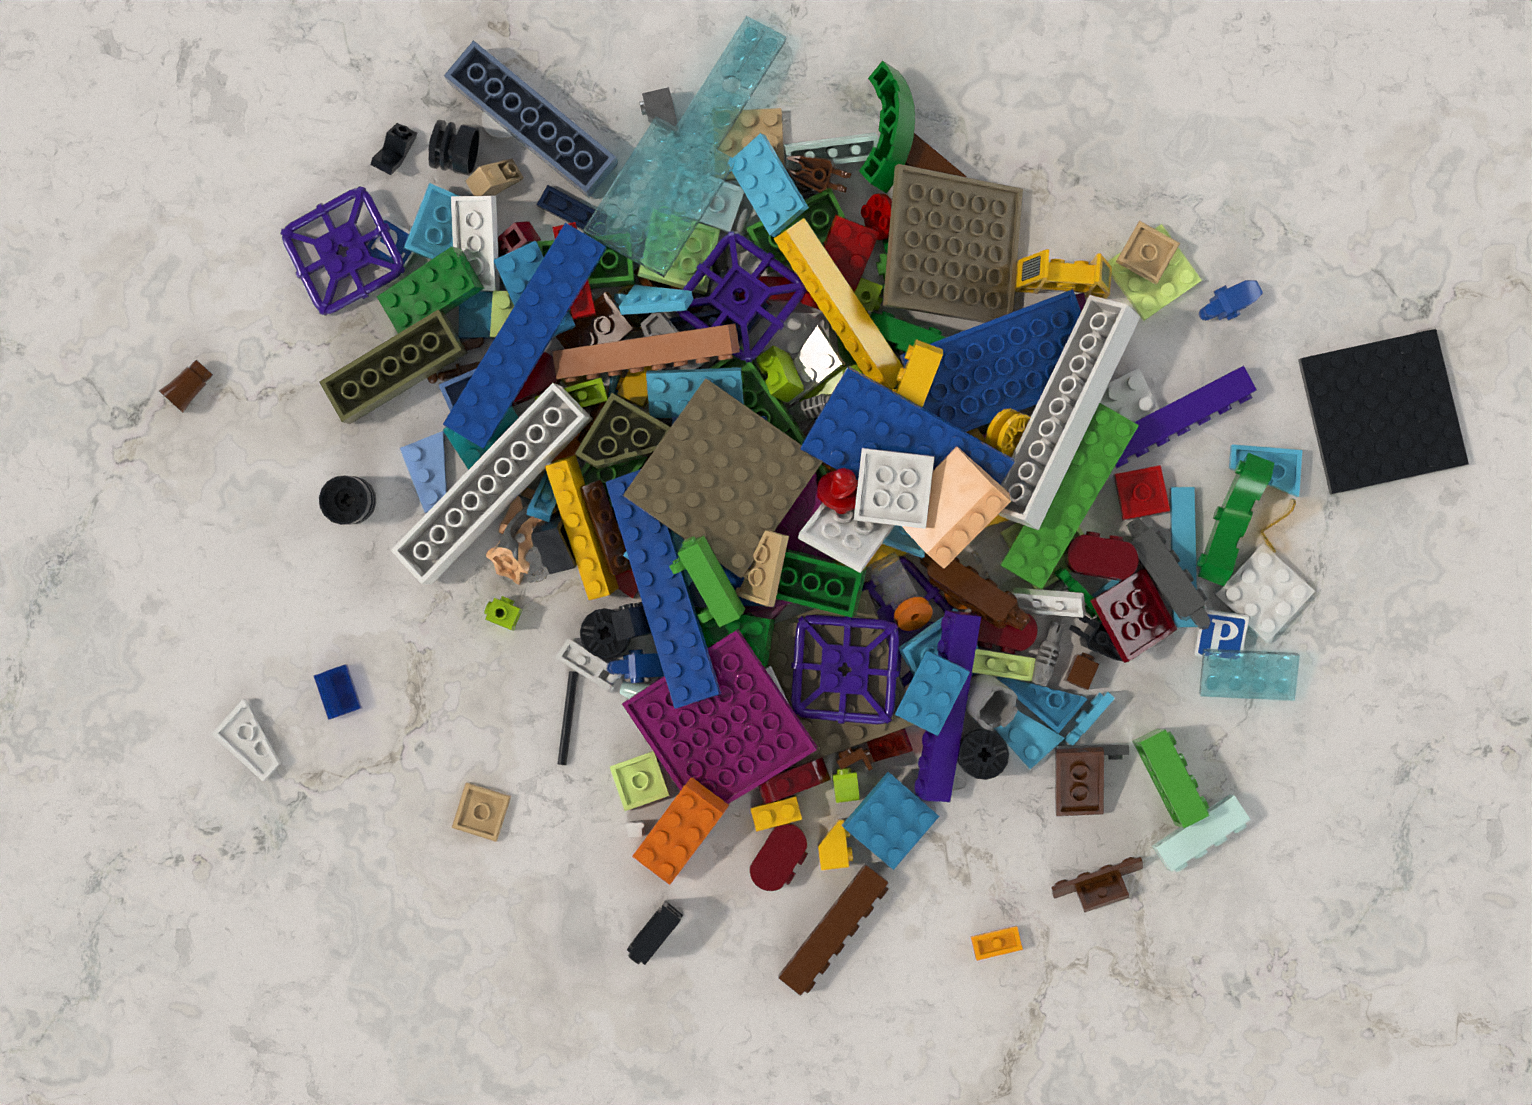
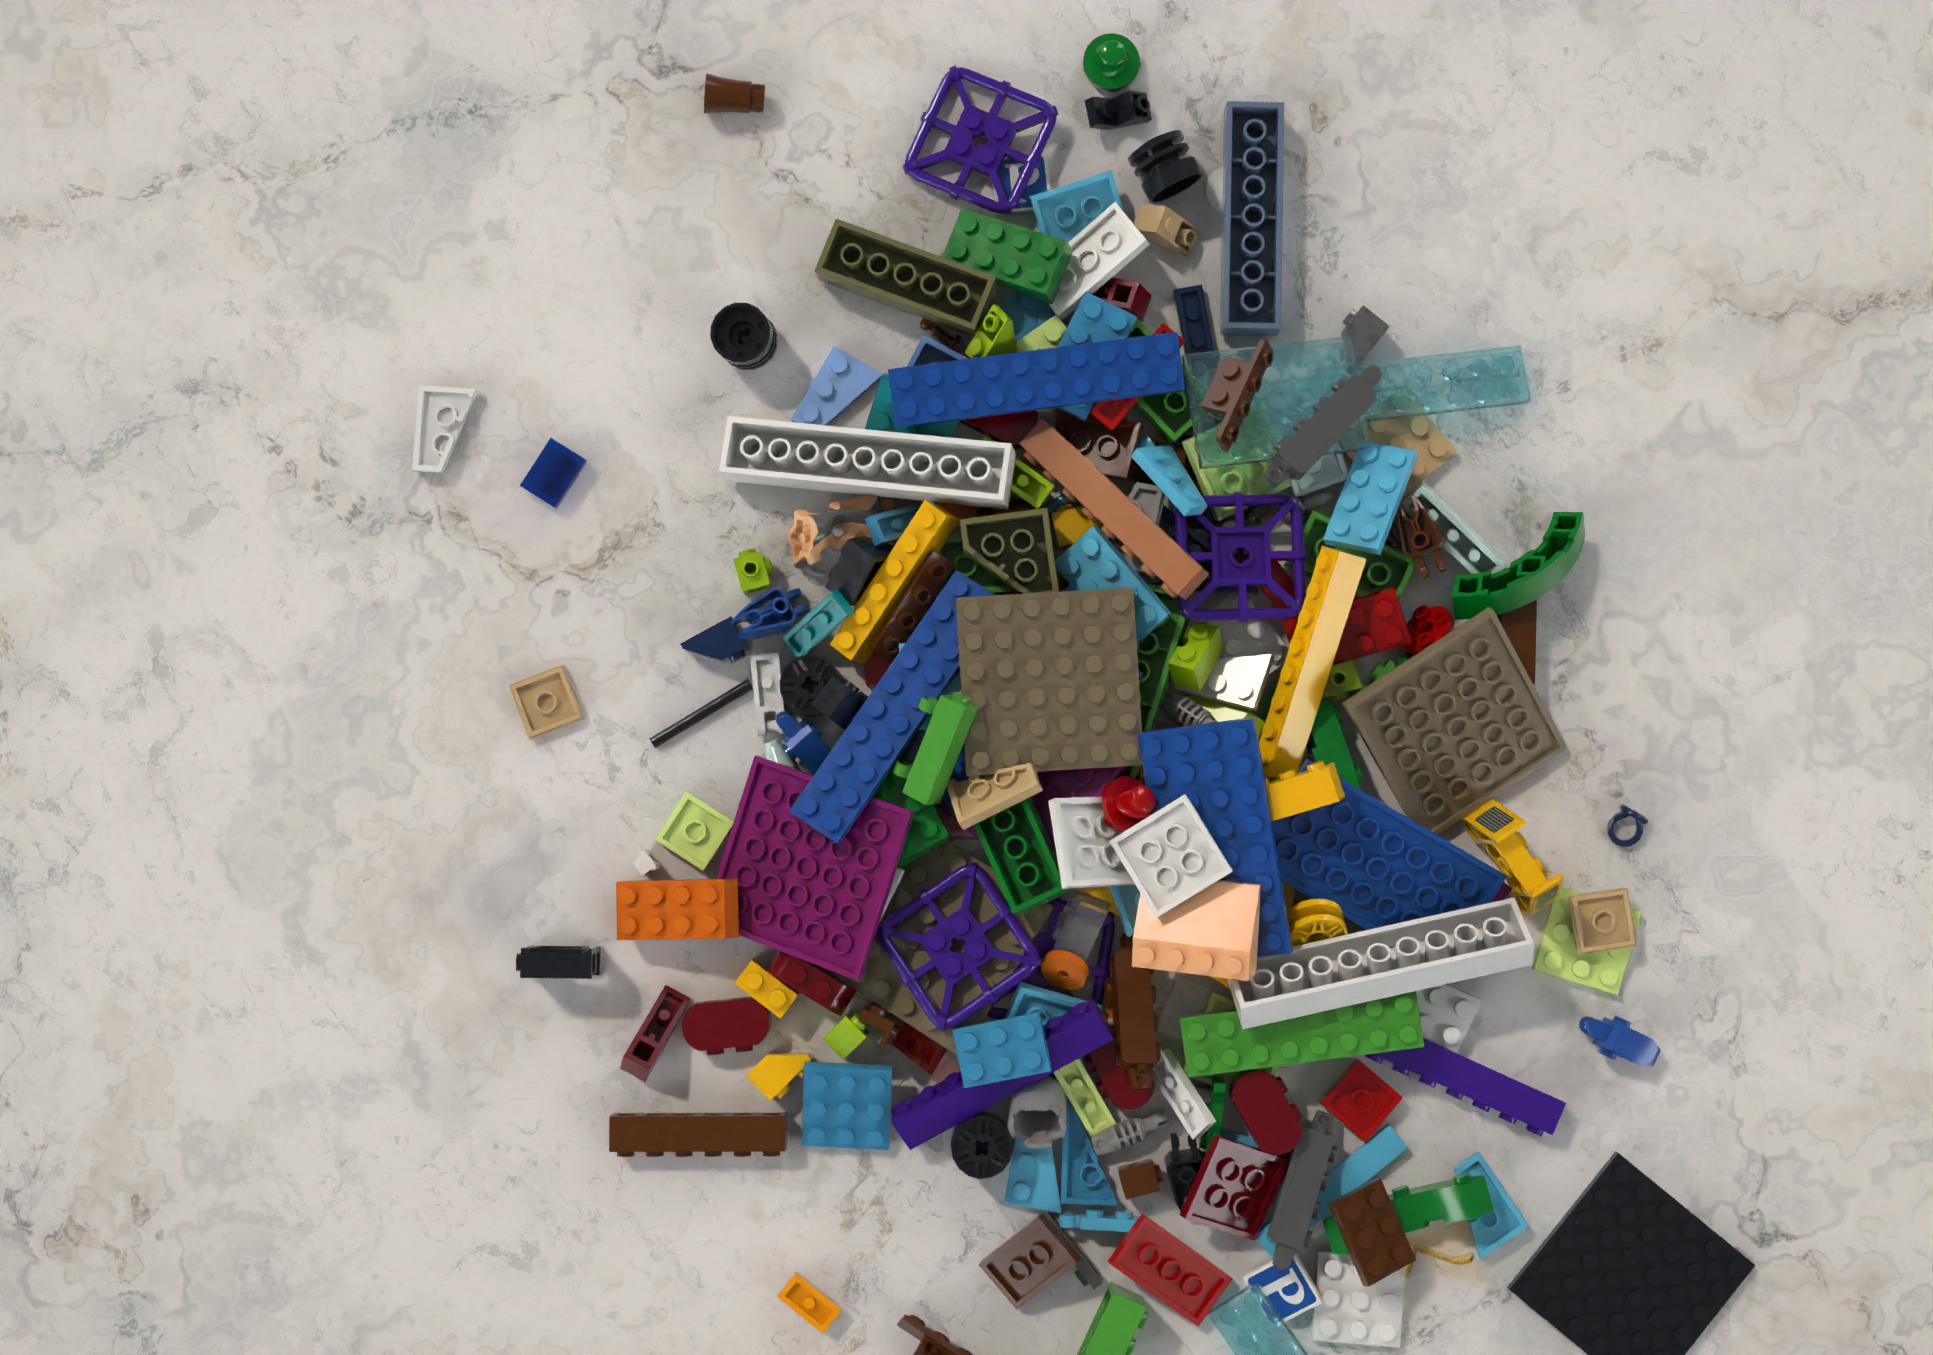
camera: 45 degrees right, 0 degrees up
(359, 129) = (1111, 62): none -> green plate
(475, 340) = (994, 336): none -> lime slope
(531, 670) = (718, 642): none -> dark blue slope
(539, 623) = (770, 614): none -> blue hinge
(570, 597) = (818, 624): none -> teal tile
(631, 216) = (1234, 389): none -> reddish brown bracket
(700, 177) = (1324, 428): none -> dark grey hinge
(748, 908) = (654, 1033): none -> dark red slope
(1091, 183) = (1640, 820): none -> dark blue piece
(1153, 696) = (1170, 1269): none -> red plate
(1229, 550) = (1372, 1232): none -> reddish brown plate

